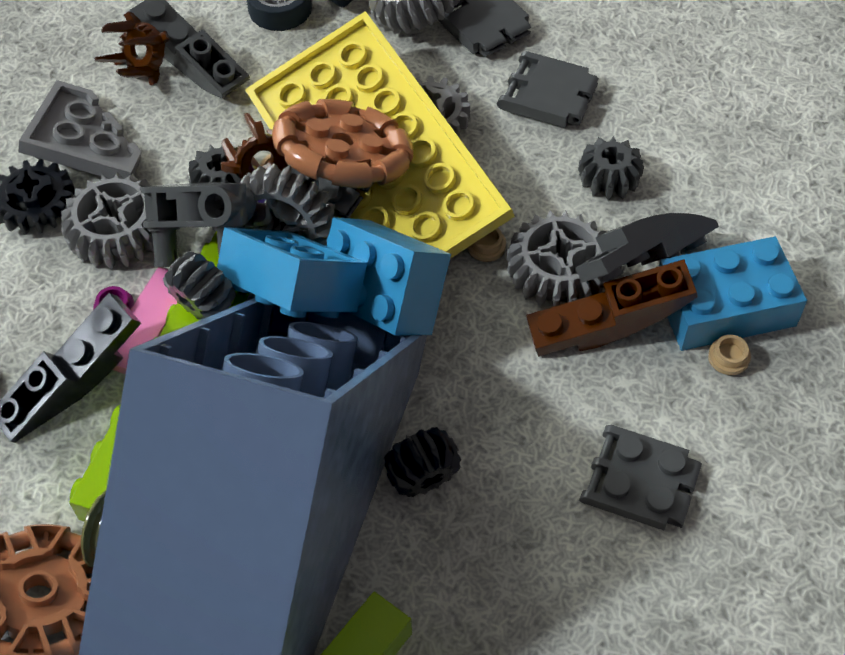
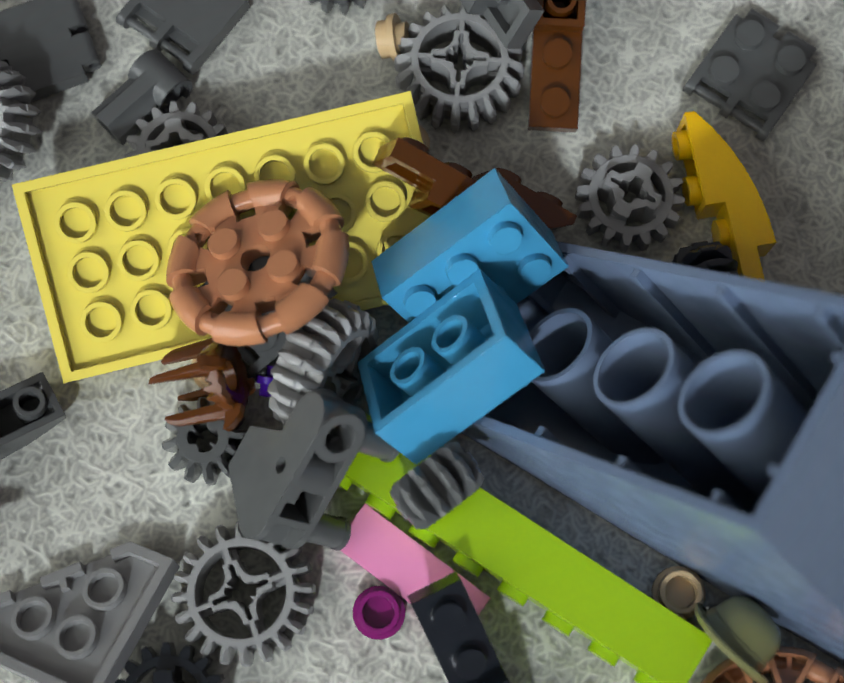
camera: 75 degrees left, 20 degrees up
(455, 294) = (442, 182): none -> reddish brown slope
(481, 84) = (150, 84): none -> dark grey piece
(507, 405) = (649, 207): none -> light grey gear
(514, 468) = (723, 189): none -> yellow slope
(573, 206) = (389, 35): none -> tan plate

